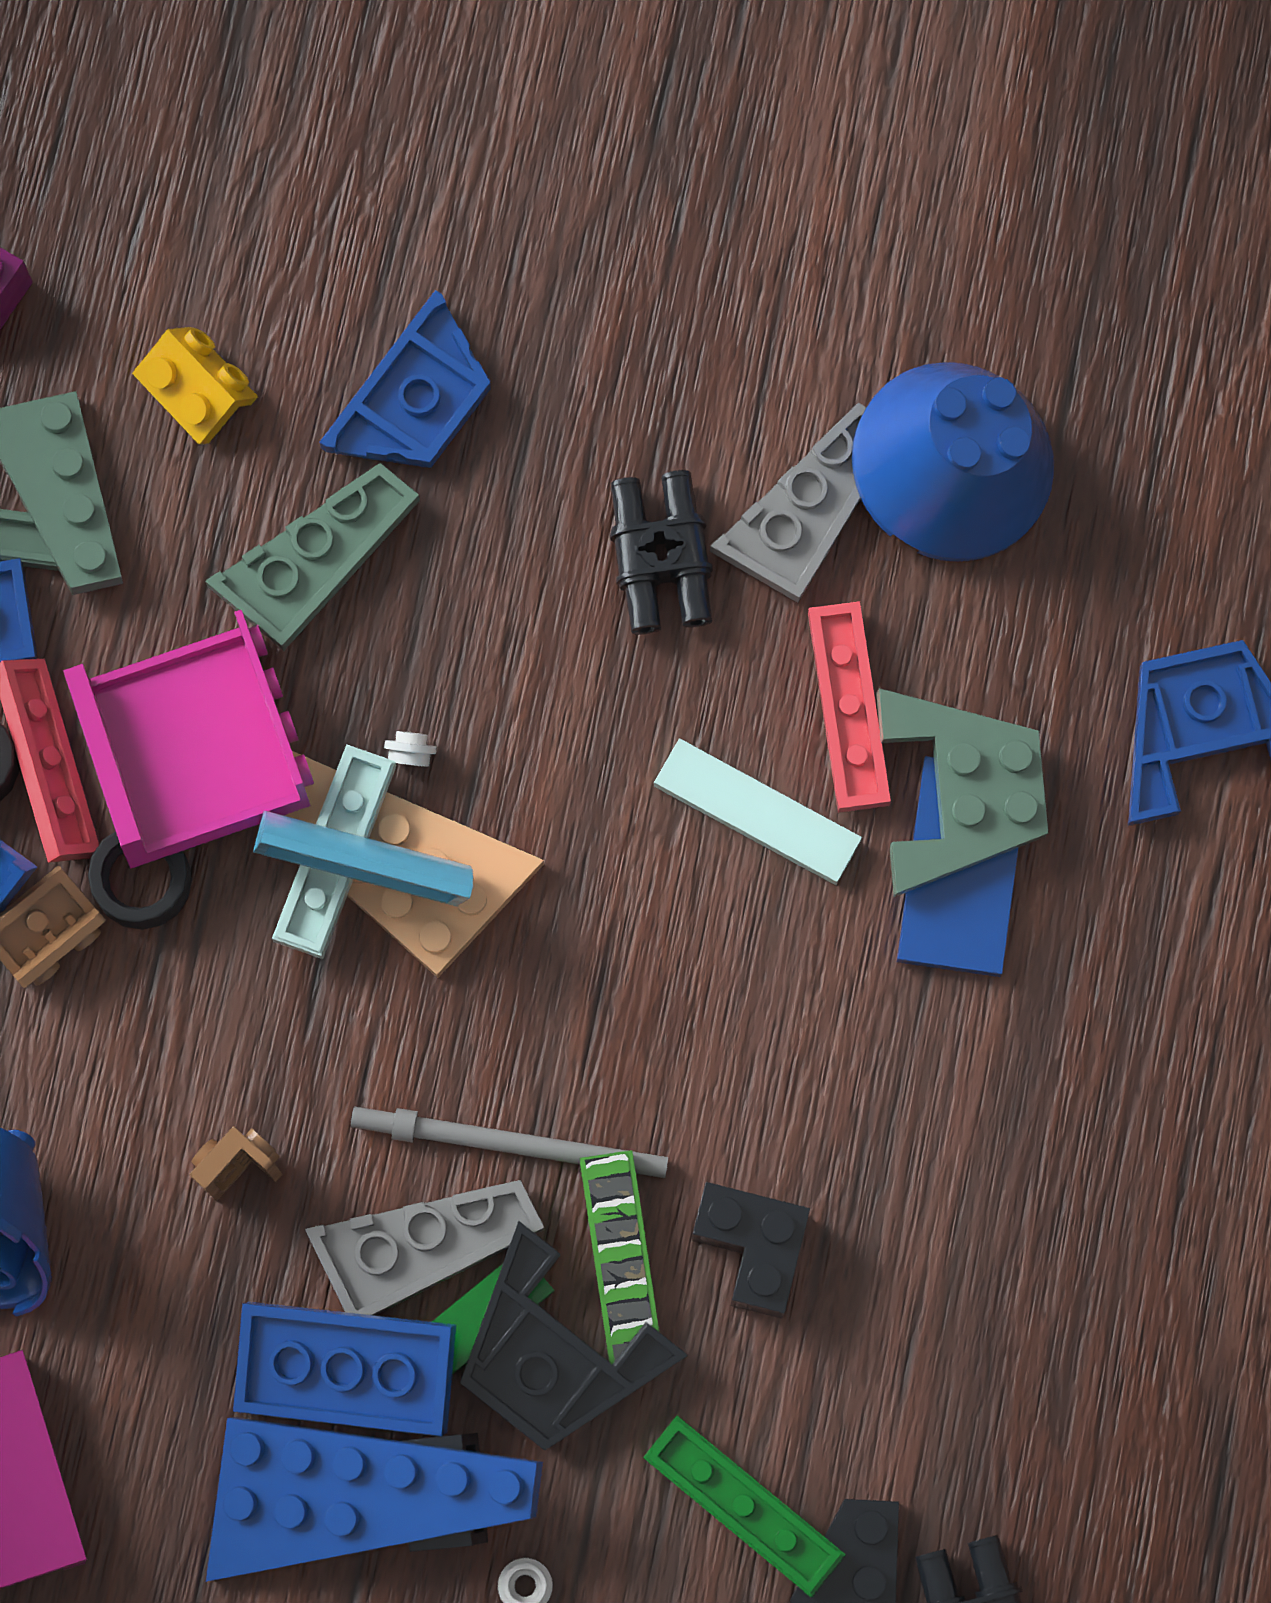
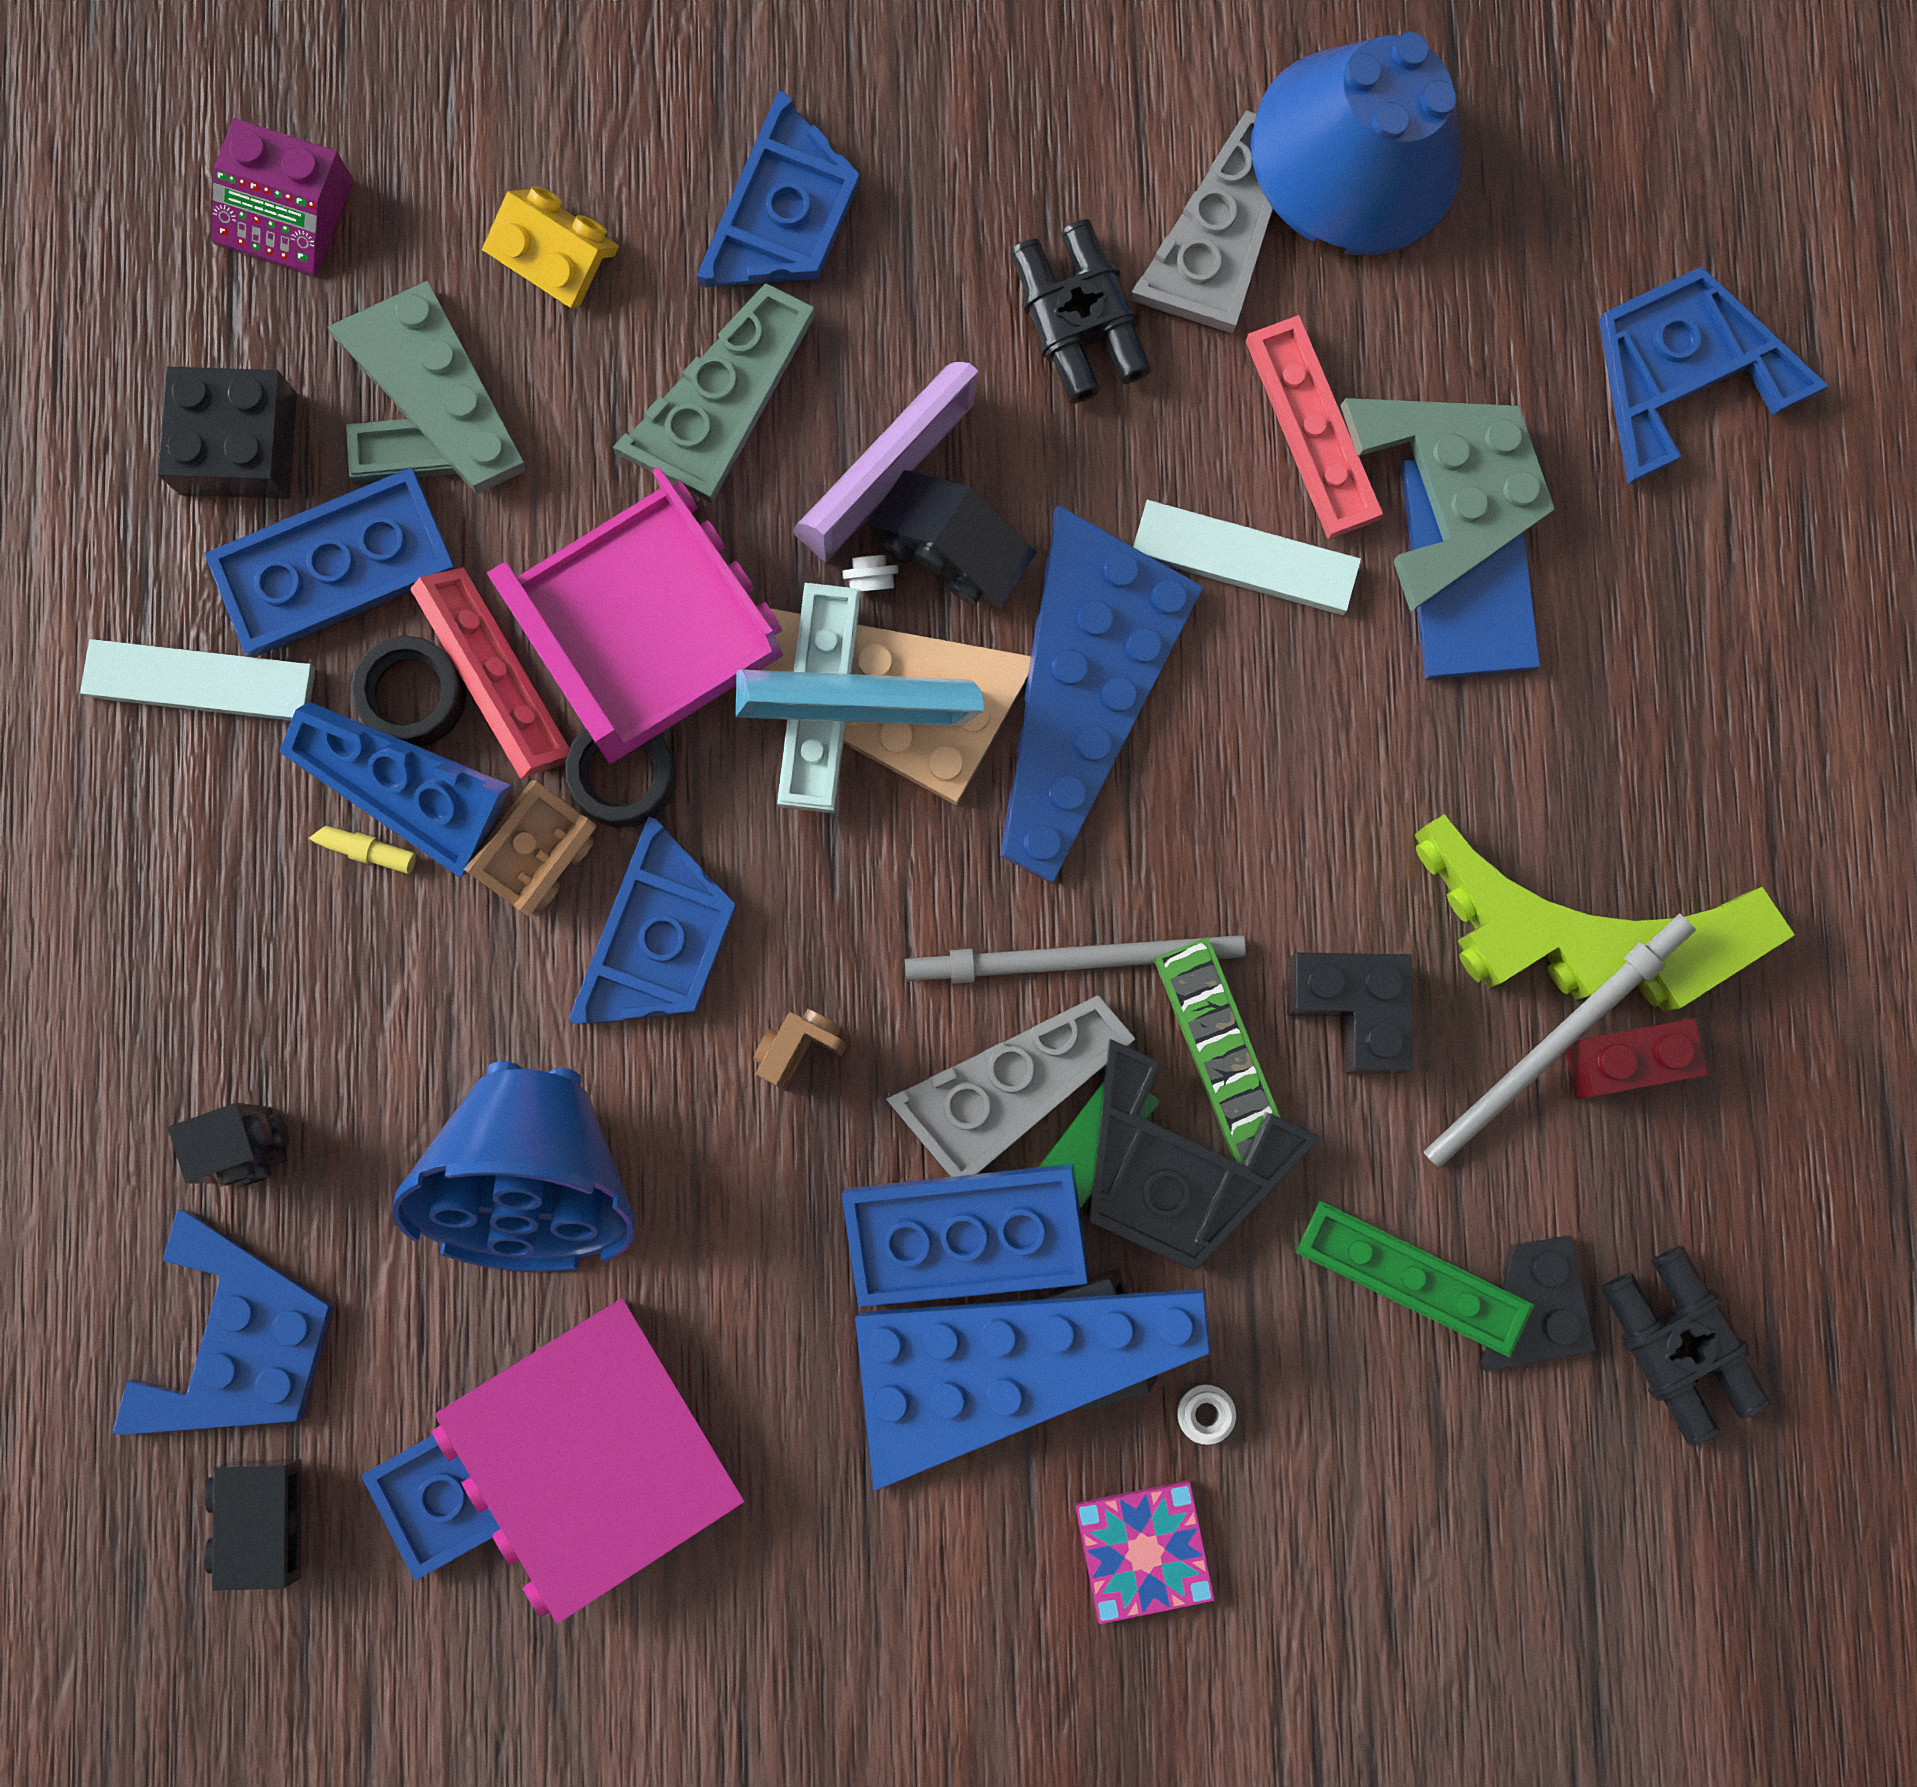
camera: 15 degrees left, 5 degrees up
(135, 1034) = (657, 937): none -> blue wing
(450, 651) = (878, 469): none -> lavender slope
(492, 731) = (952, 534): none -> black brick
(596, 871) = (1093, 661): none -> blue wing
(919, 1210) = (1587, 949): none -> lime arch
(996, 1353) = (1636, 1058): none -> dark red brick
(1015, 1265) = (1642, 963): none -> light grey bar

